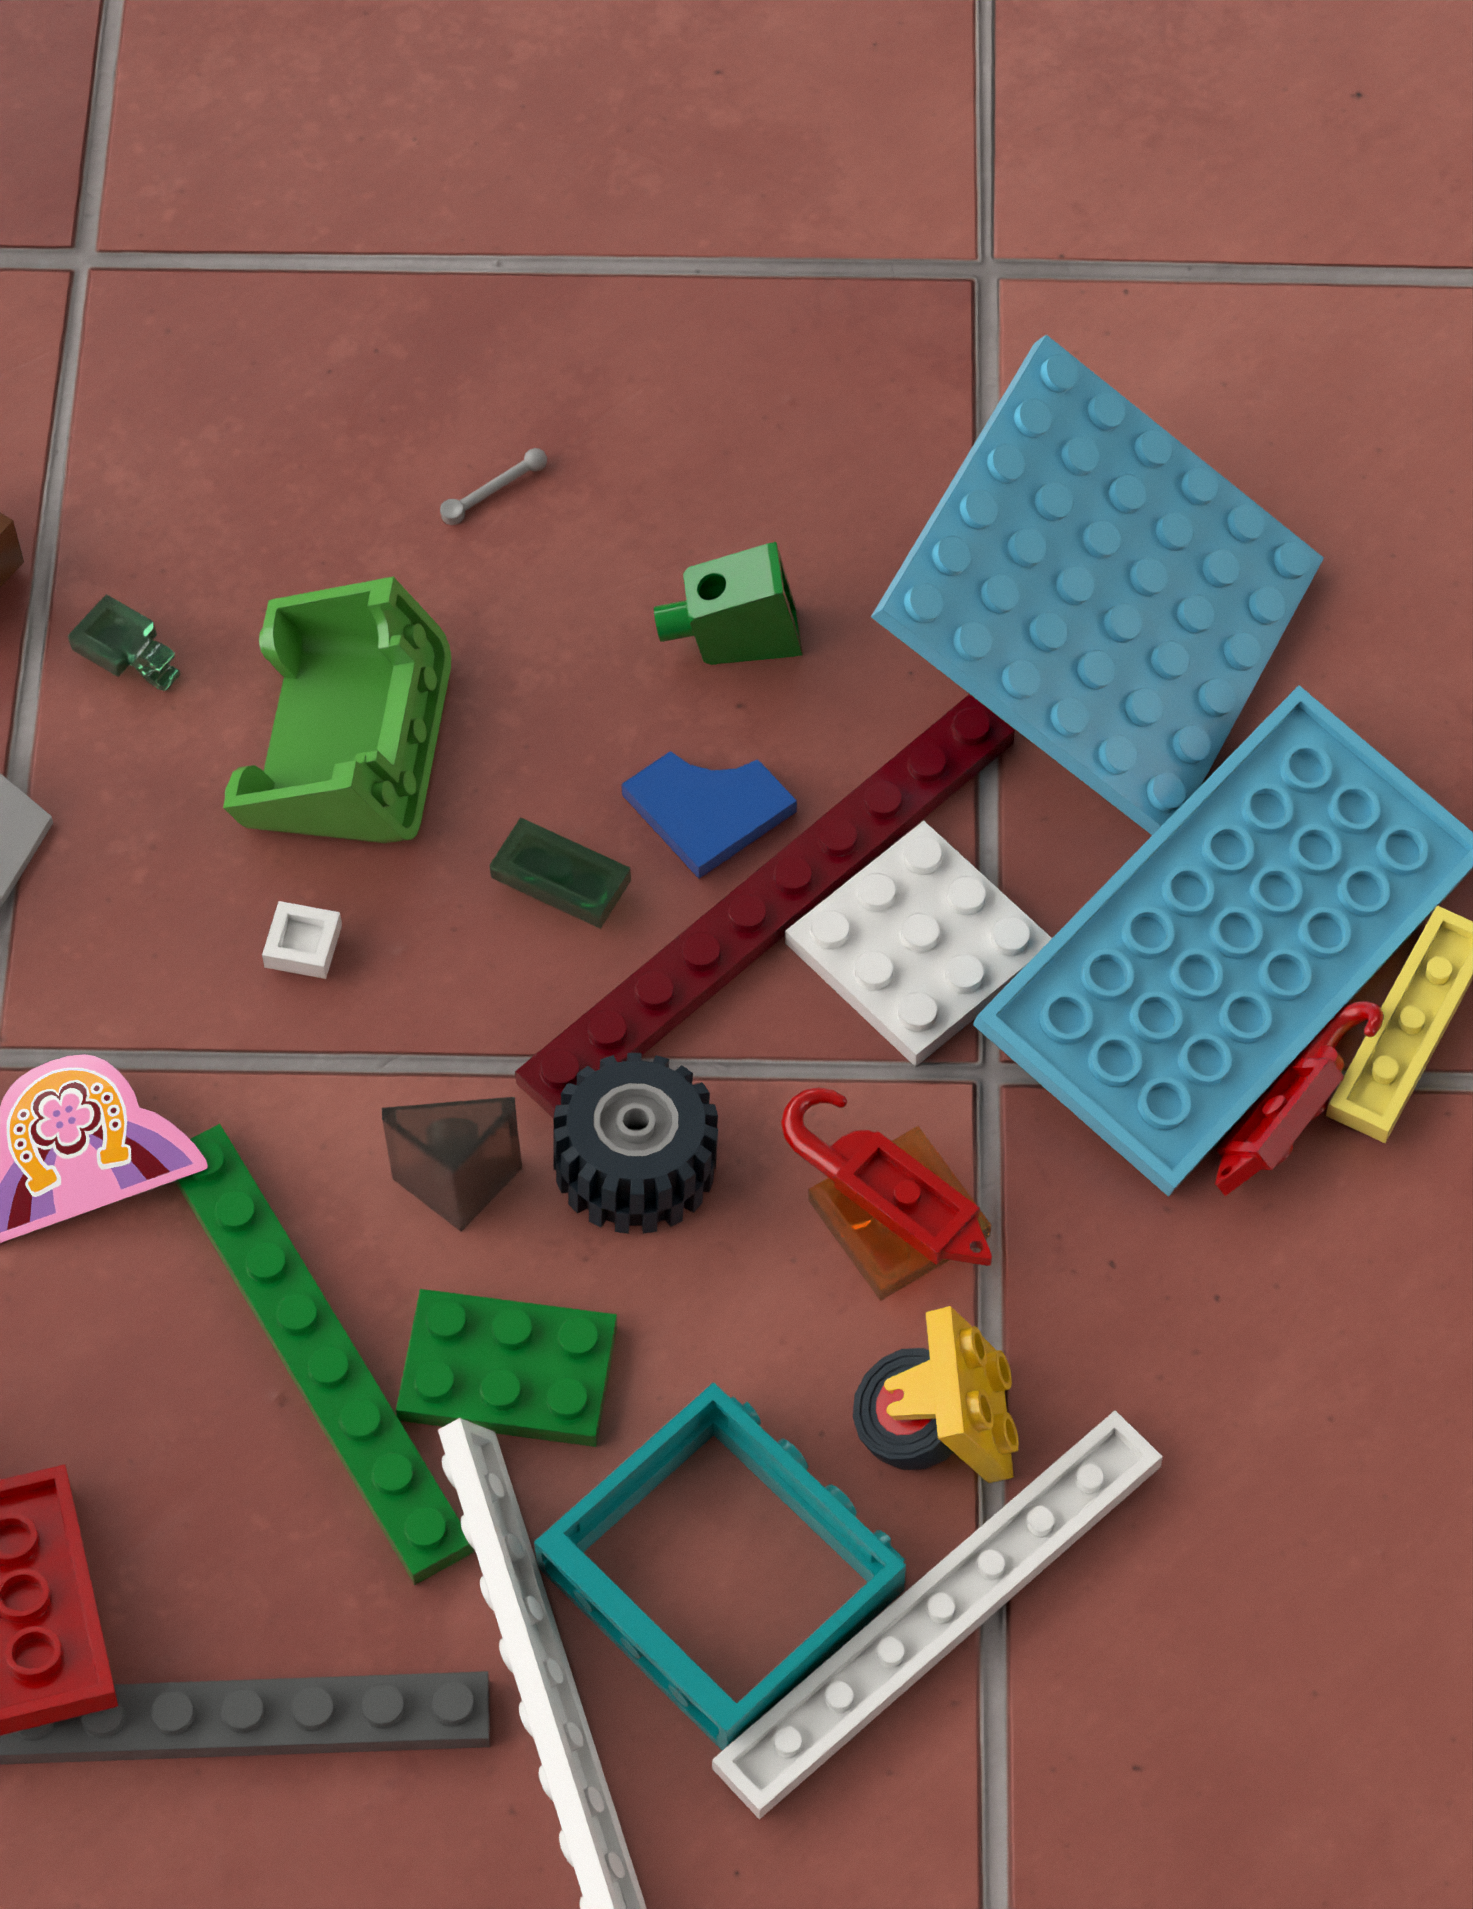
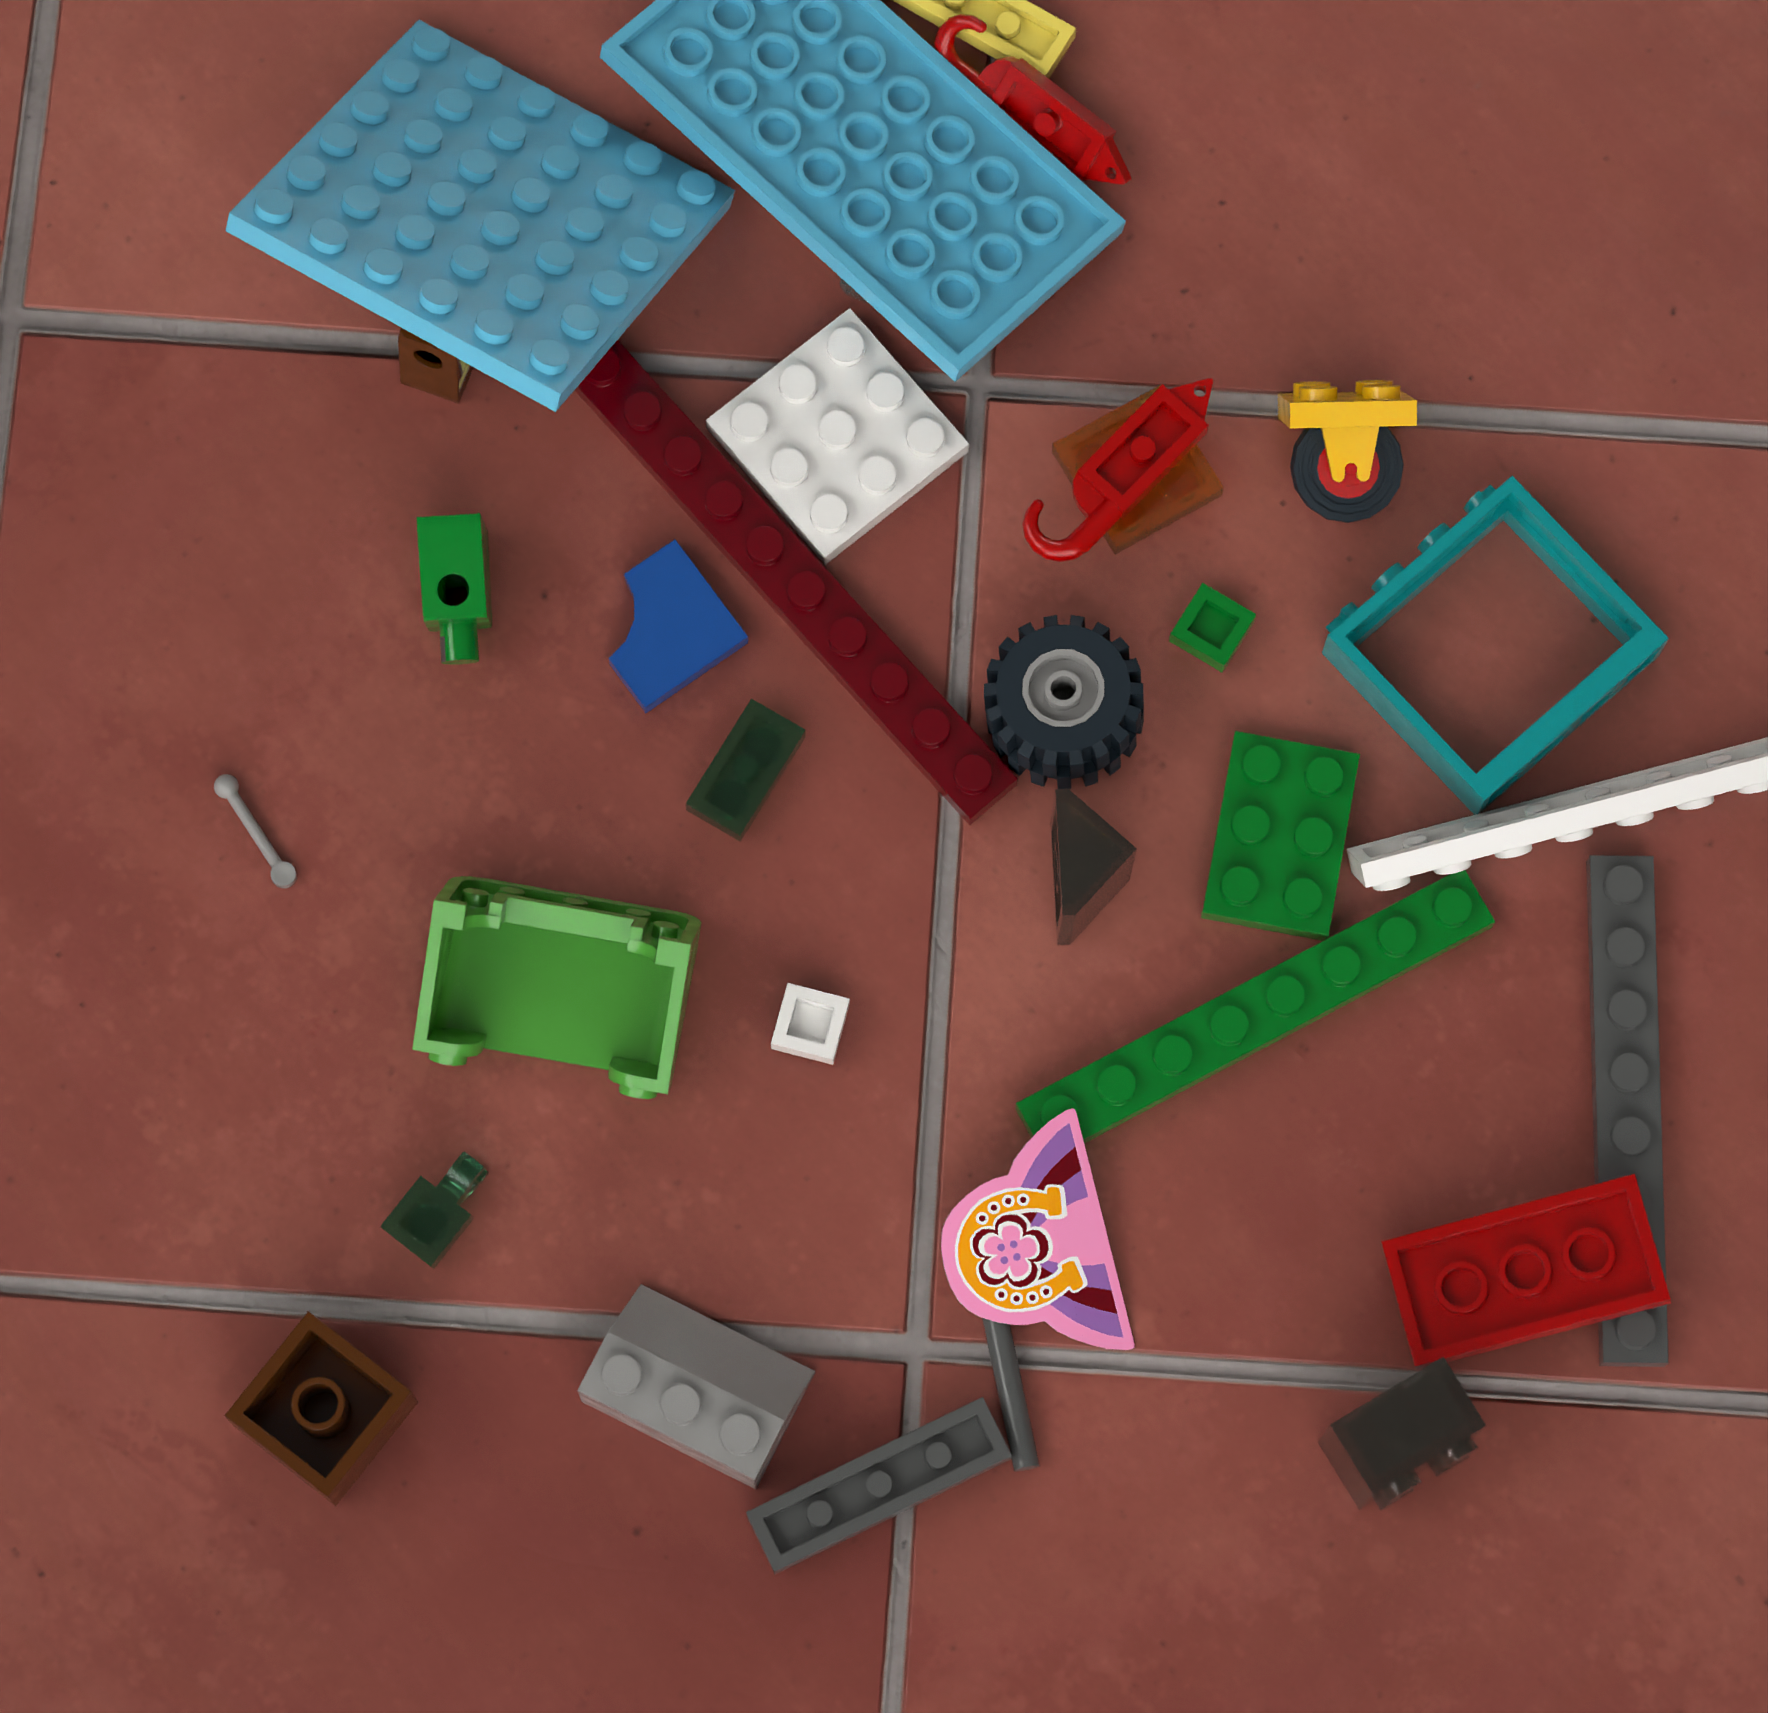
camera: 90 degrees left, 15 degrees up
(728, 1289) = (1212, 627): none -> green plate
(935, 1614) = (1534, 453): white plate -> none

